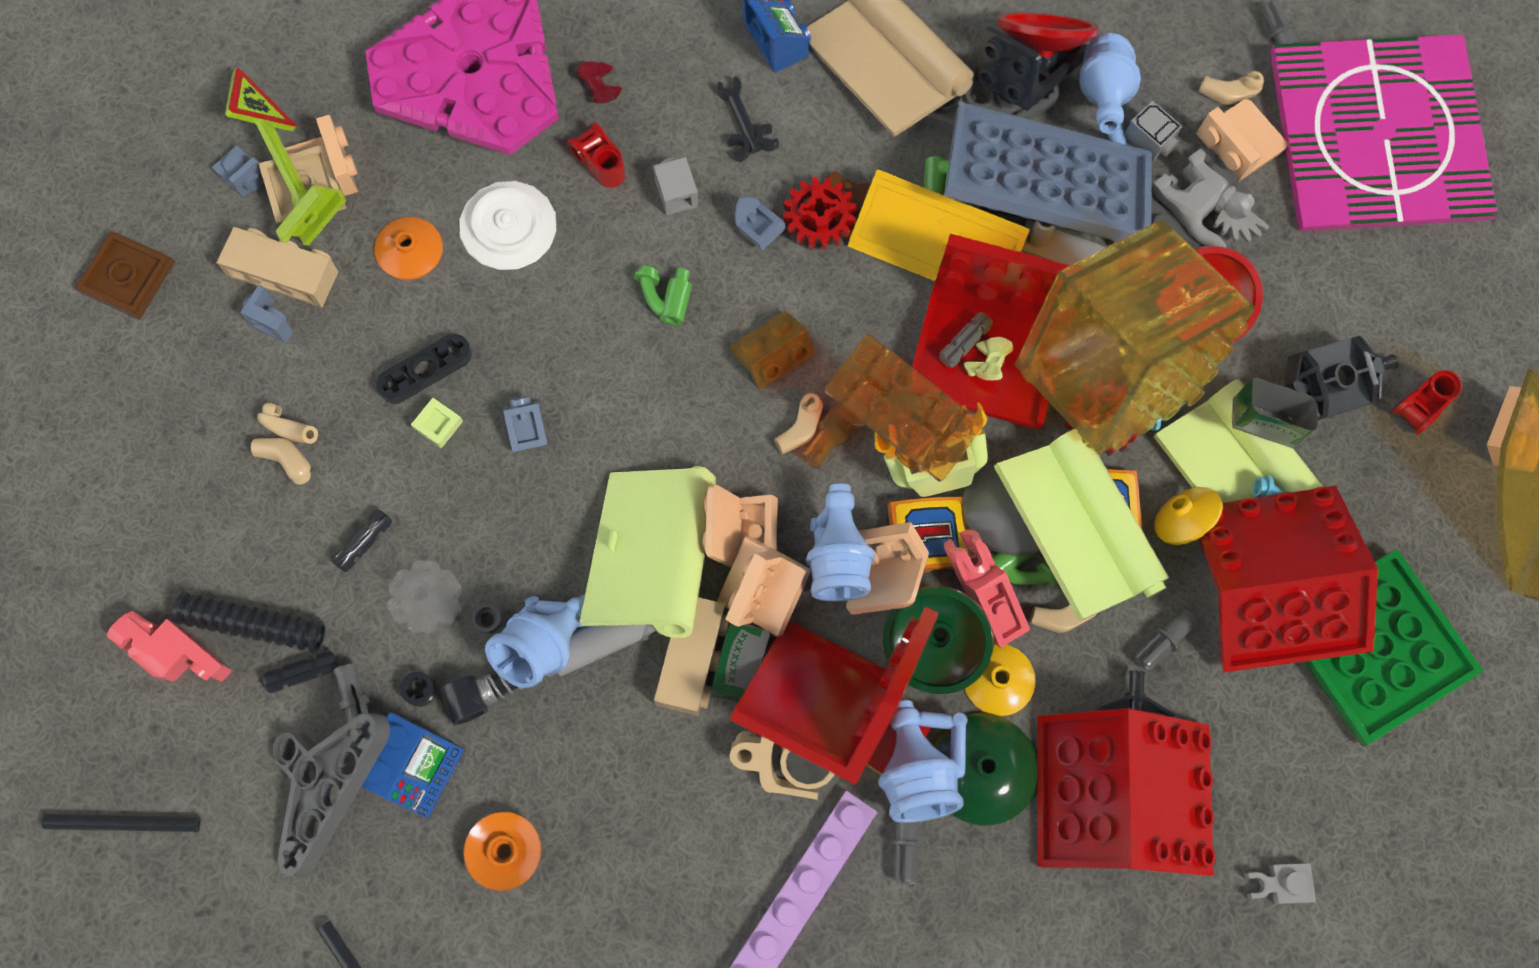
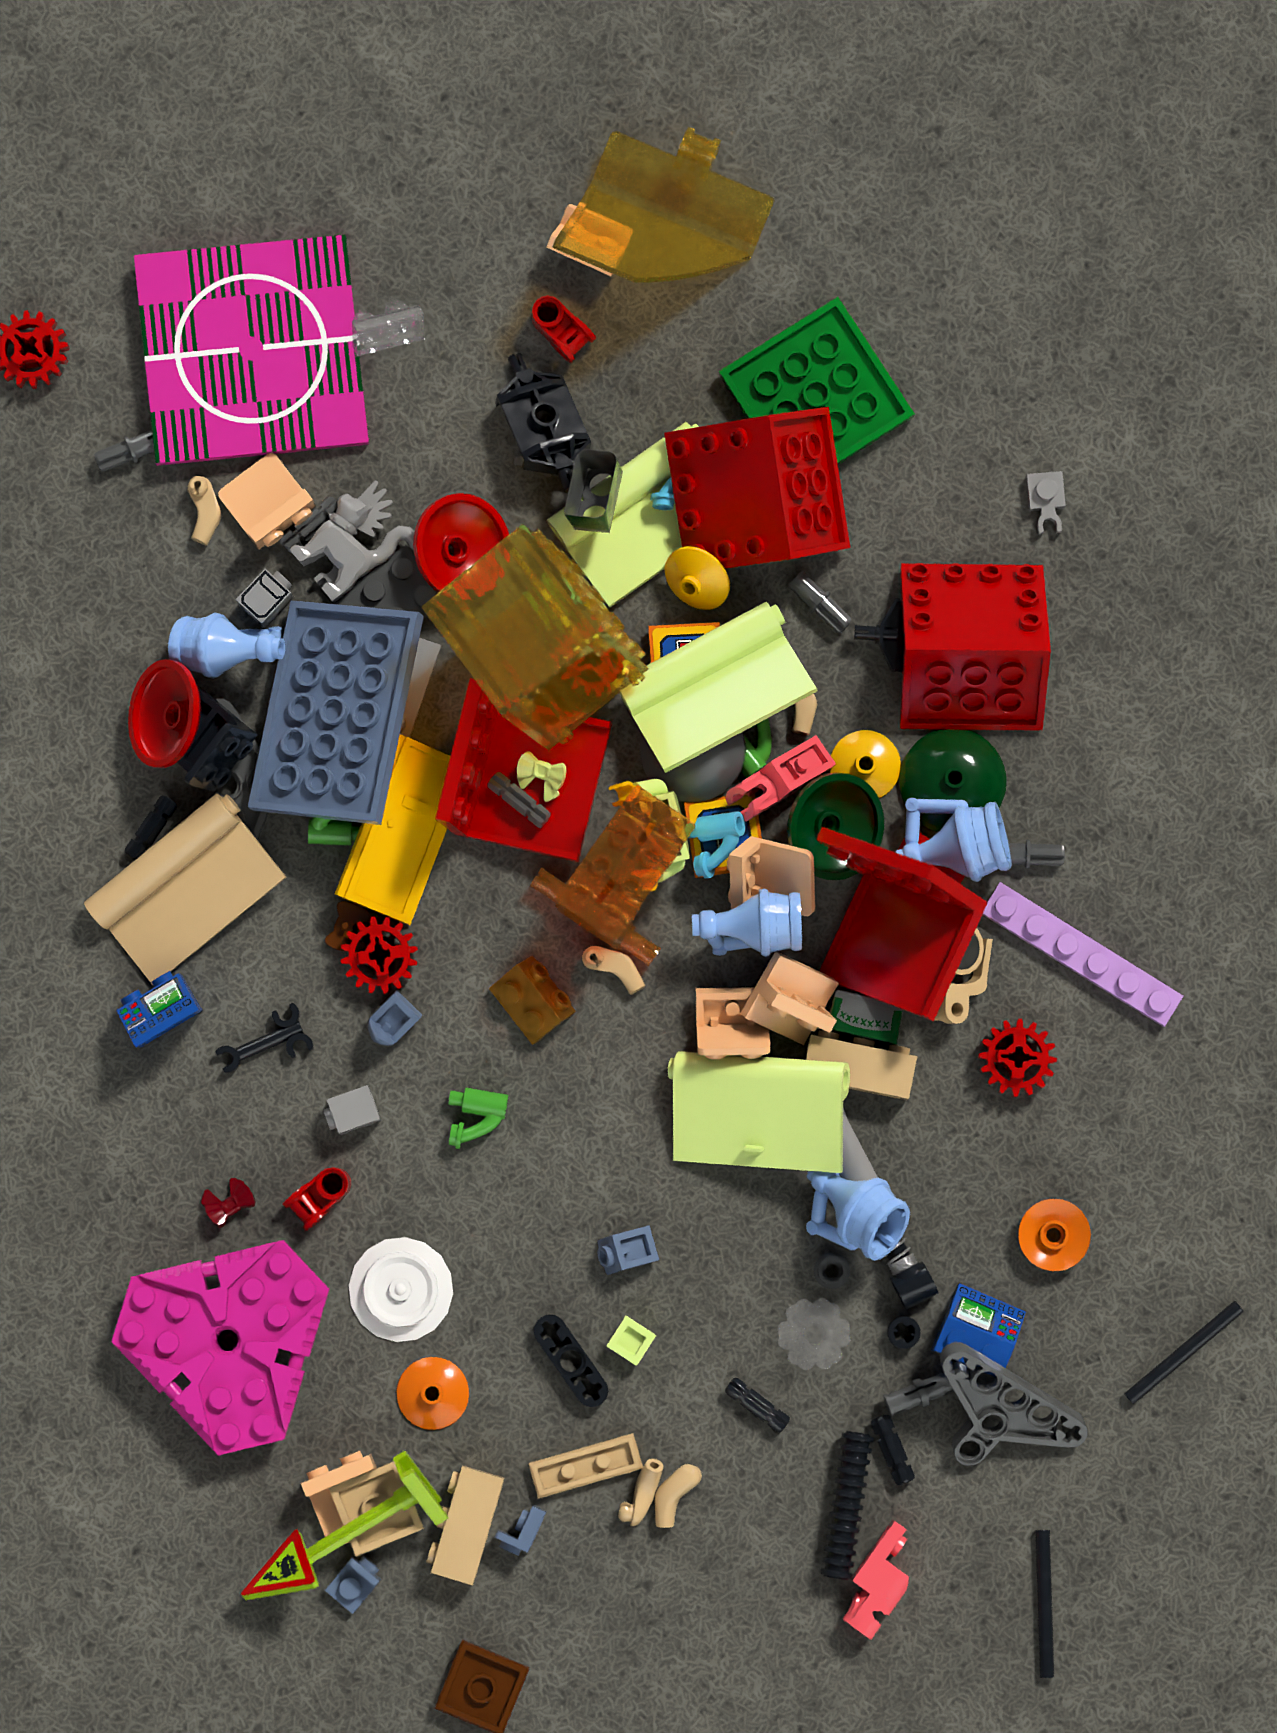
camera: 90 degrees left, 10 degrees up
(323, 378) = (585, 1465): none -> tan tile
(673, 818) = (1018, 1041): none -> red gear
(938, 522) = (715, 827): none -> medium azure plant
(958, 45) = (151, 827): none -> black axle
(1413, 243) = (393, 328): none -> clear tile

